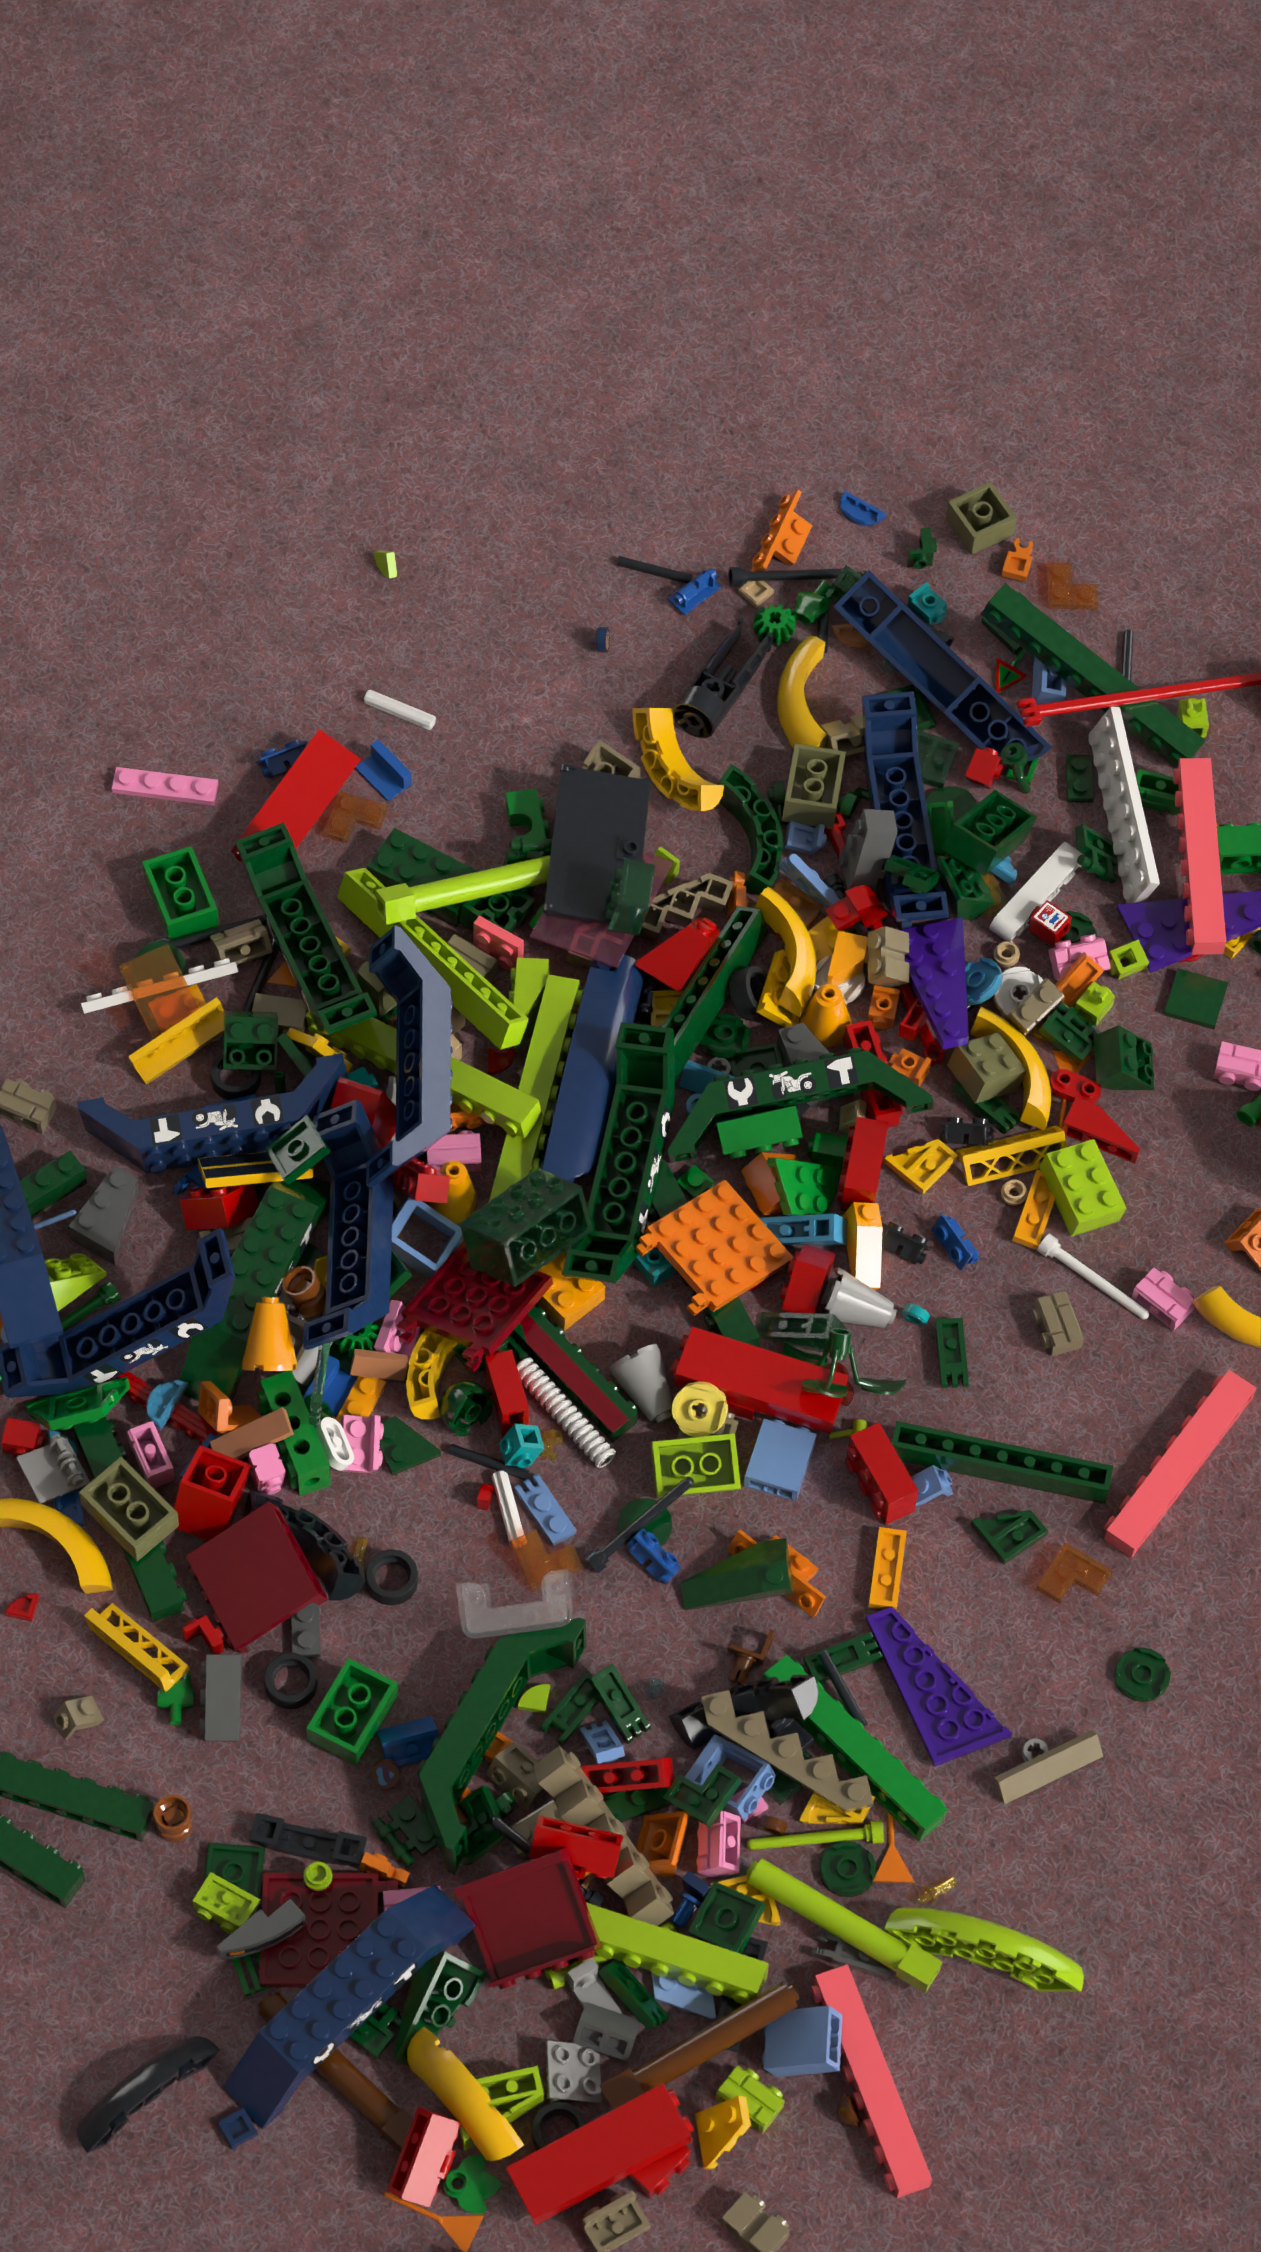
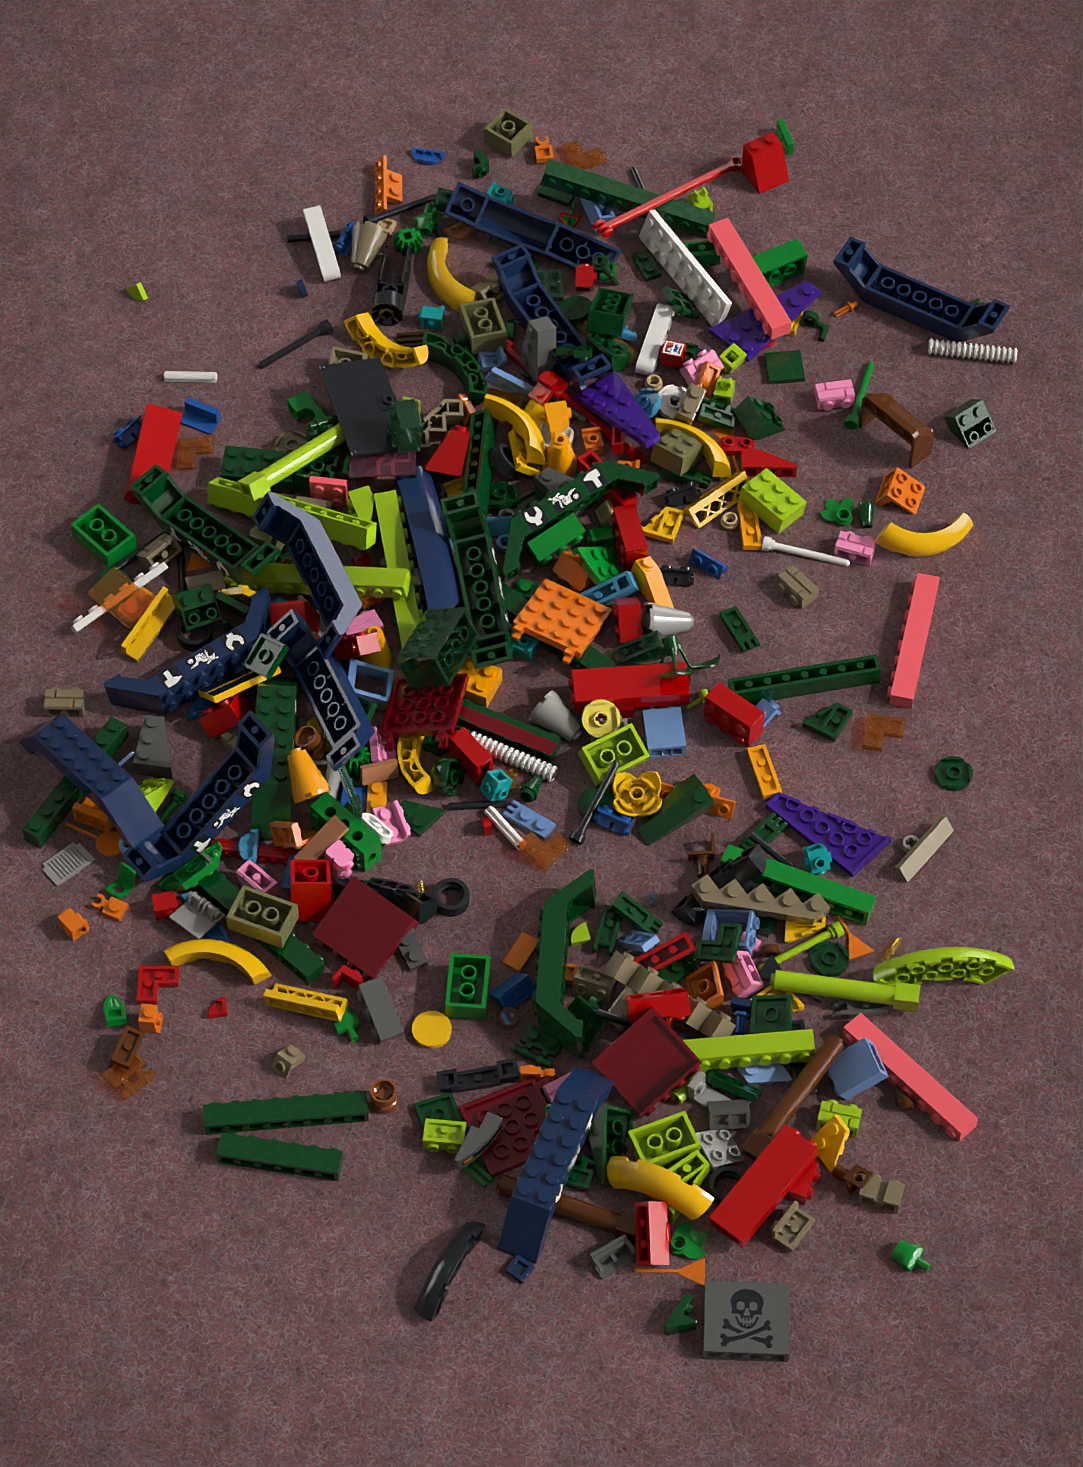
camera: 20 degrees left, 5 degrees down
(165, 786) = (59, 477): bright pink plate -> none
(281, 1750) = (431, 1029): none -> yellow tile
(290, 1701) = (417, 998): black tyre -> none
(317, 1876) = (496, 1093): lime plate -> none
(363, 2164) = (612, 1256): none -> dark grey hinge
(445, 1691) = (520, 952): none -> orange tile
(482, 1621) = (524, 895): clear windscreen -> none
(493, 849) = (290, 441): none -> dark tan tile
(502, 2036) = (664, 1140): none -> lime brick
(567, 1468) = (530, 789): none -> dark green cone
(604, 708) = (324, 328): none -> black piece
(657, 586) = (322, 243): none -> white beam
(694, 1517) = (627, 787): none -> yellow brick
(698, 763) = (411, 338): none -> dark brown tile
(713, 610) = (366, 243): none -> dark tan cone
(726, 2192) = (852, 1178): none -> reddish brown bracket
(754, 746) = (431, 317): none -> teal brick
(763, 1849) = (770, 967): none -> black piece
(887, 957) = (582, 409): dark tan brick -> none
(895, 1722) = (816, 859): none -> teal brick
(915, 1314) = (705, 614): teal tile -> none
(941, 821) = (577, 319): green tile -> none
(1168, 1233) = (836, 510): none -> green plate
(1203, 1254) = (865, 512): none -> dark green cone

